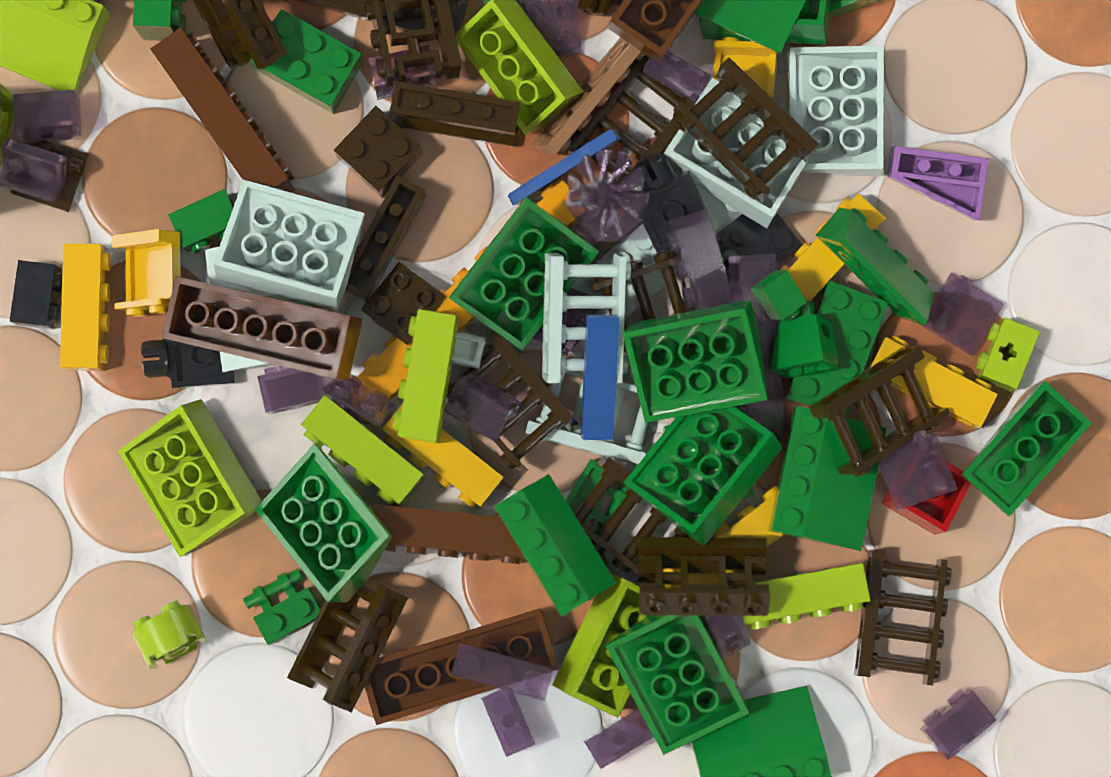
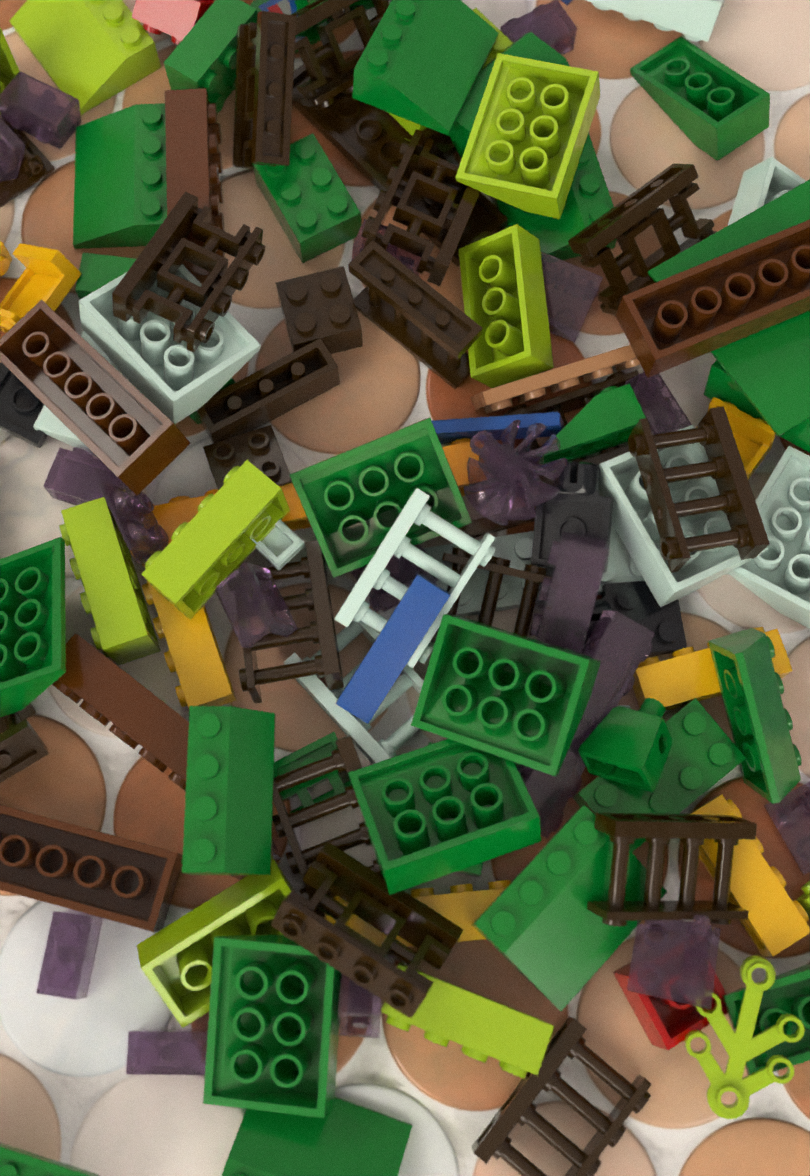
camera: 30 degrees right, 10 degrees down
(151, 131) = (120, 178): none -> green slope
(255, 192) = (164, 257): none -> dark brown fence
(502, 671) = (88, 894): clear purple brick -> none
(646, 112) = (599, 425): none -> green slope
(779, 296) = (634, 677): green brick -> none
(991, 498) = (742, 1046): none -> lime plant

